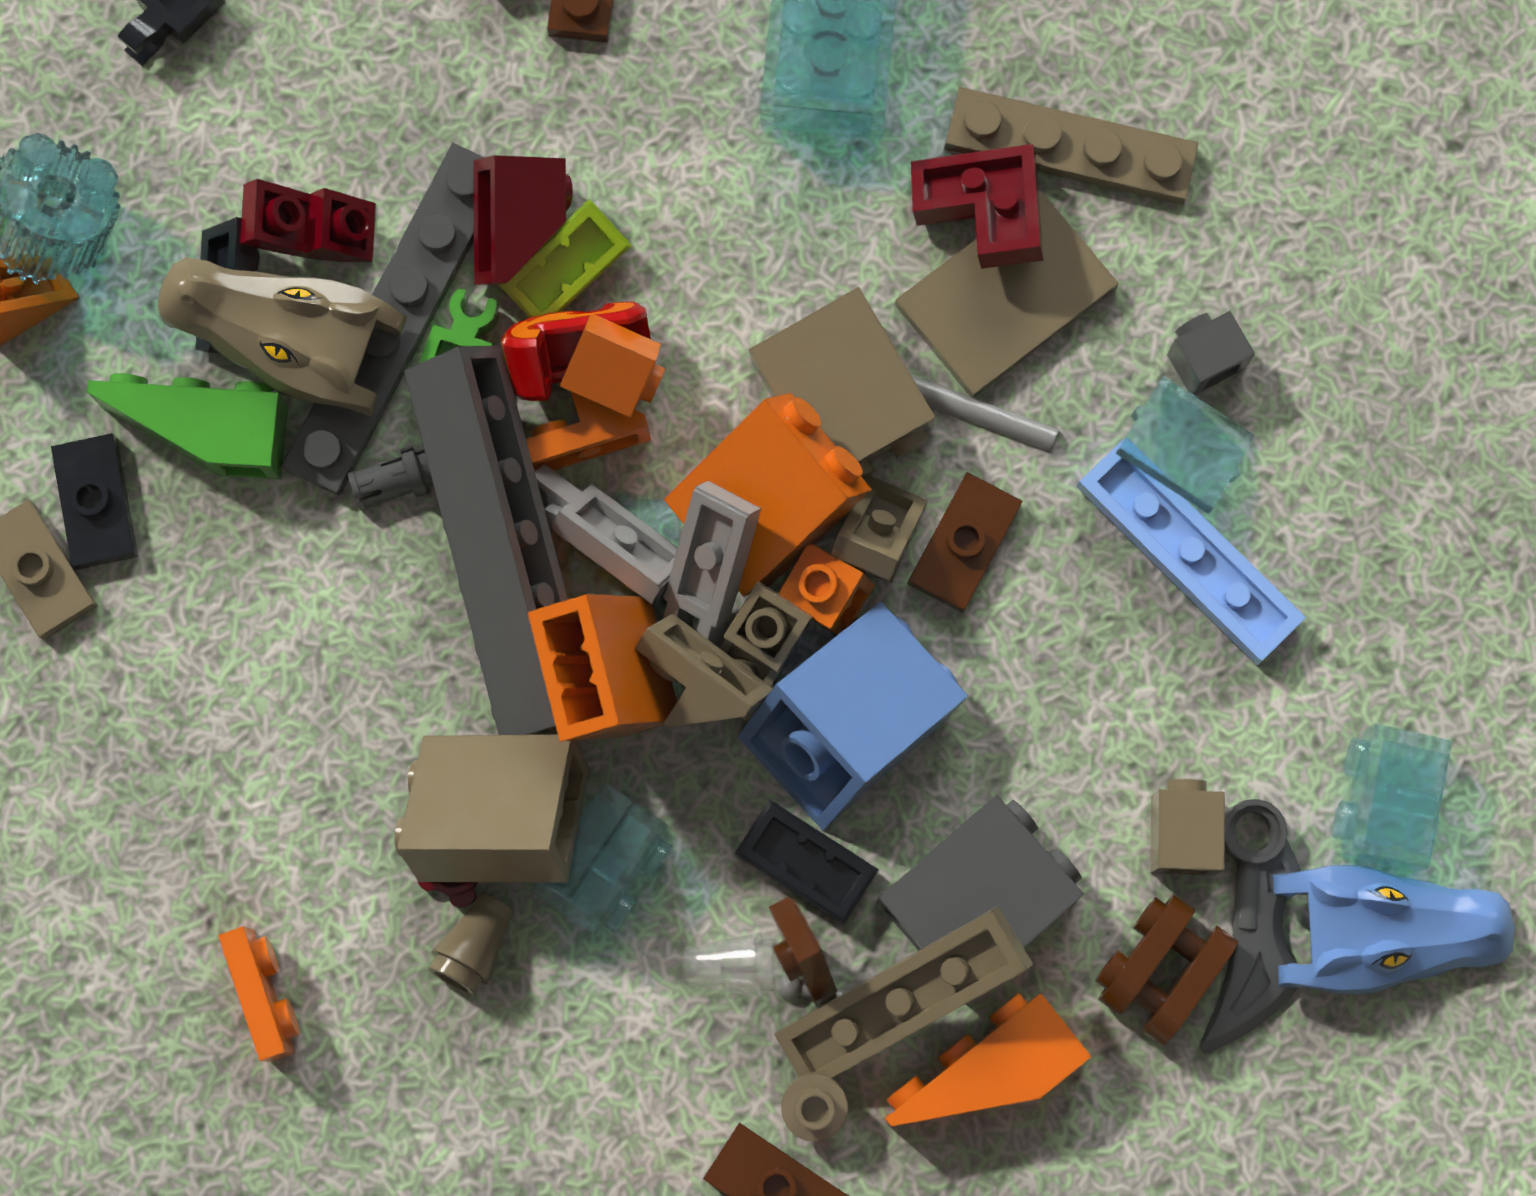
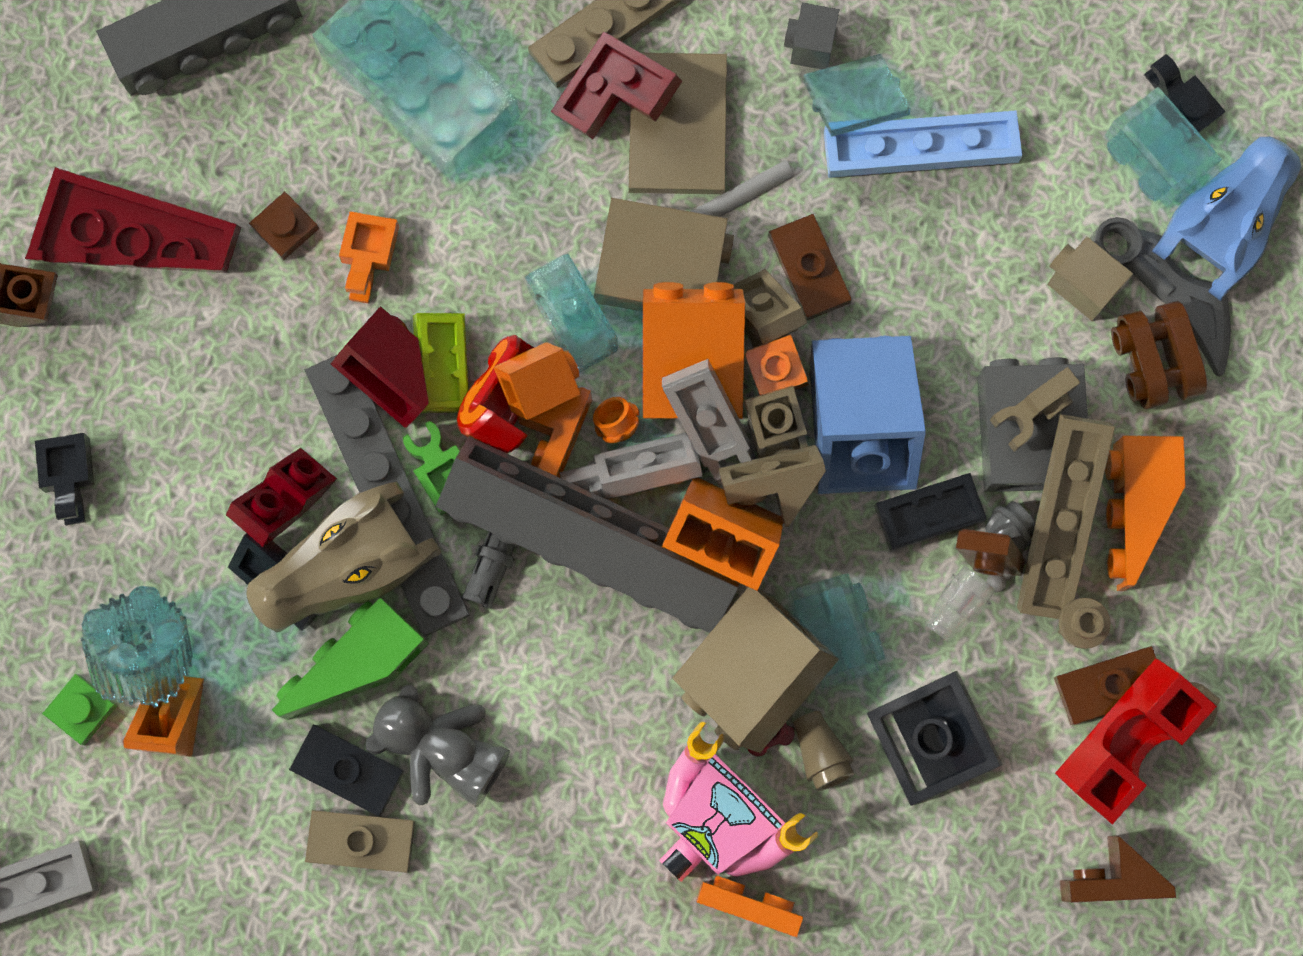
camera: 50 degrees left, 0 degrees up
(184, 606) = (438, 745): none -> dark grey piece
(325, 895) = (722, 817): none -> bright pink torso
(583, 1050) = (941, 736): none -> black slope
(623, 99) = (366, 247): none -> orange plate
(645, 477) = (616, 419): none -> orange plate
(713, 346) = (572, 312): none -> clear light blue brick
(854, 954) = (1012, 521): none -> dark grey plate
(1007, 882) = (1047, 399): none -> dark tan plate
(1472, 789) = (1189, 97): none -> black plate

